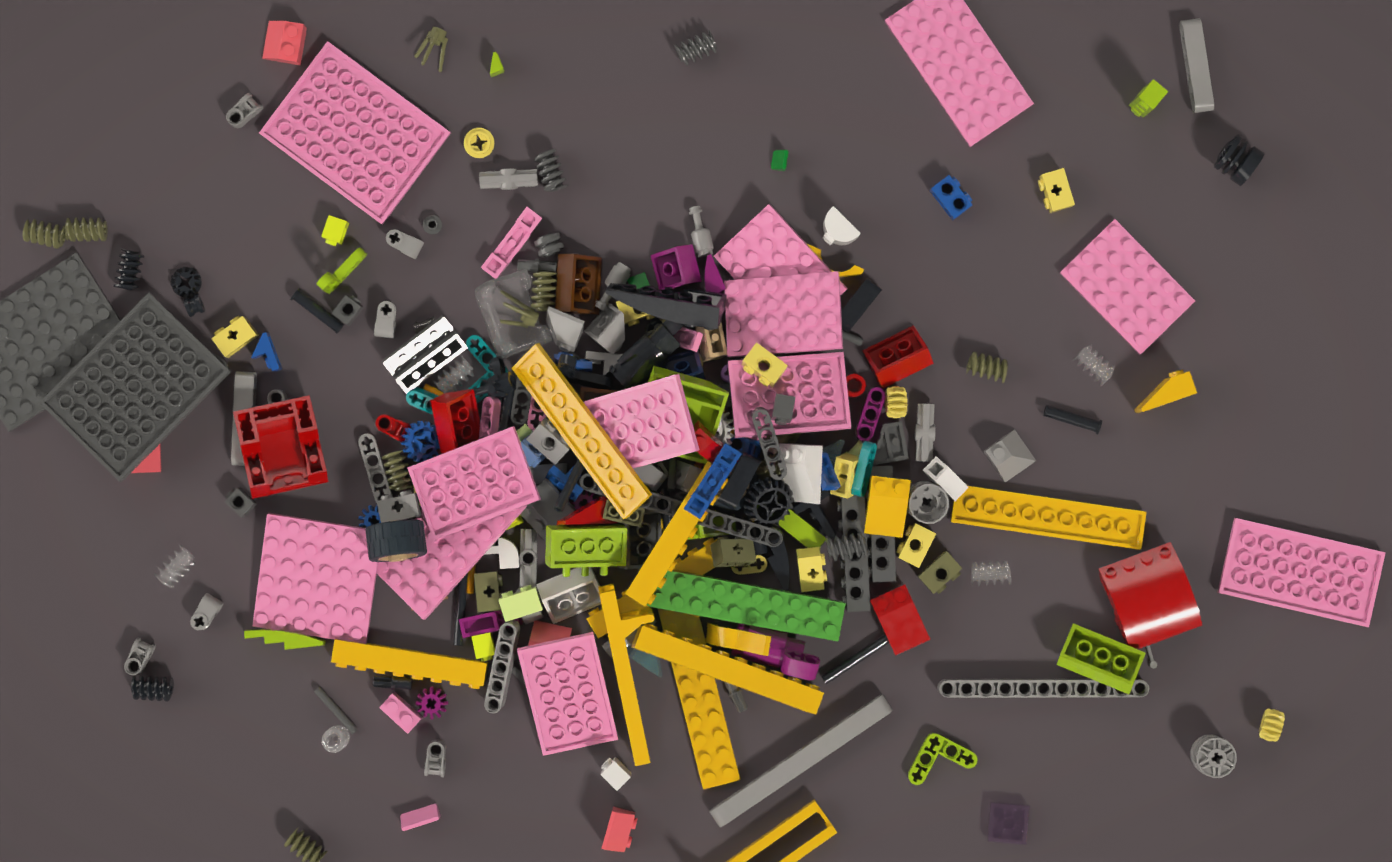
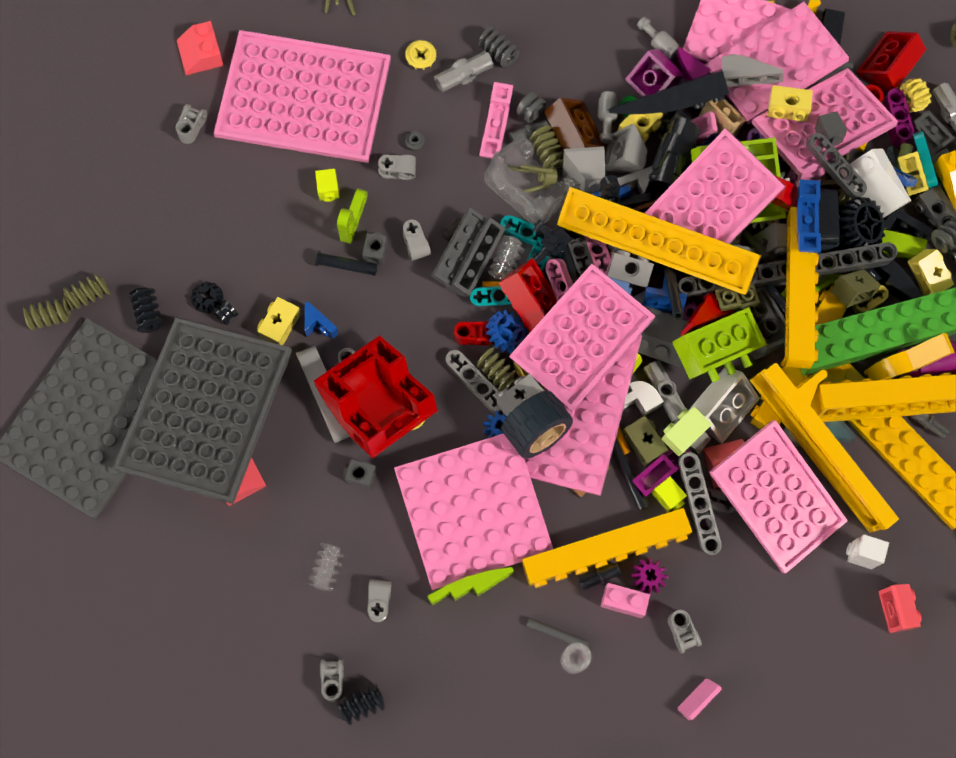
camera: 30 degrees left, 15 degrees down
(744, 310) = (747, 71): none -> light grey slope

